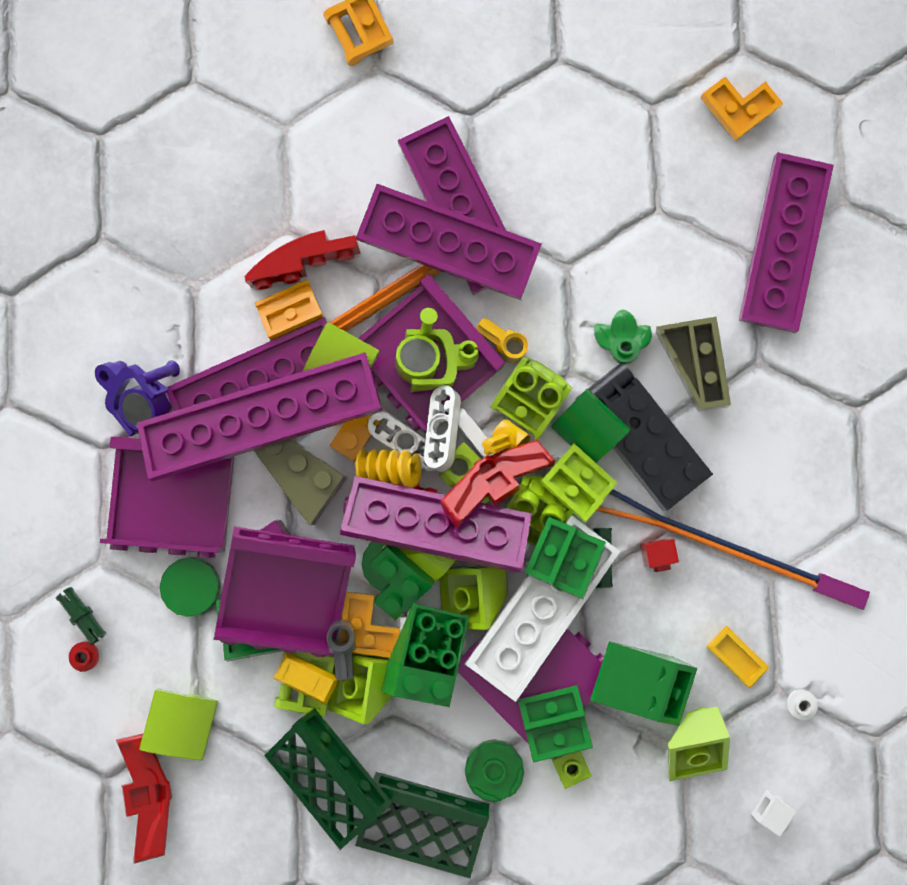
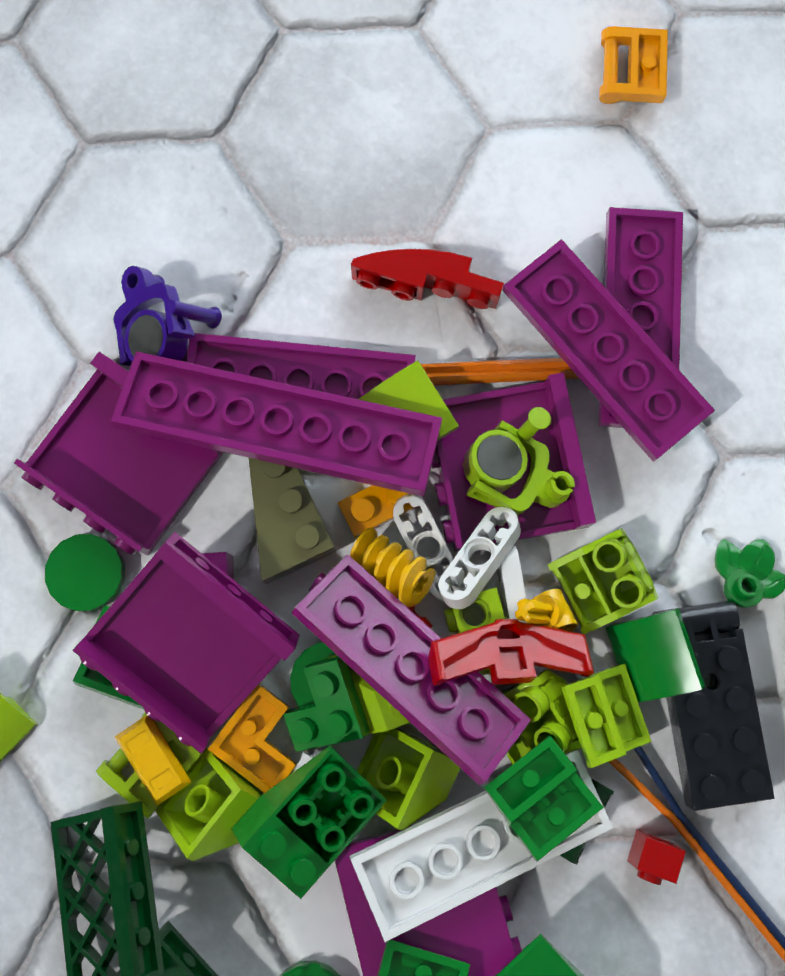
camera: 25 degrees right, 5 degrees down
(288, 310) = (380, 325): light orange plate -> none
(342, 650) = (214, 751): dark grey axle -> none
(500, 338) = (605, 493): yellow axle -> none

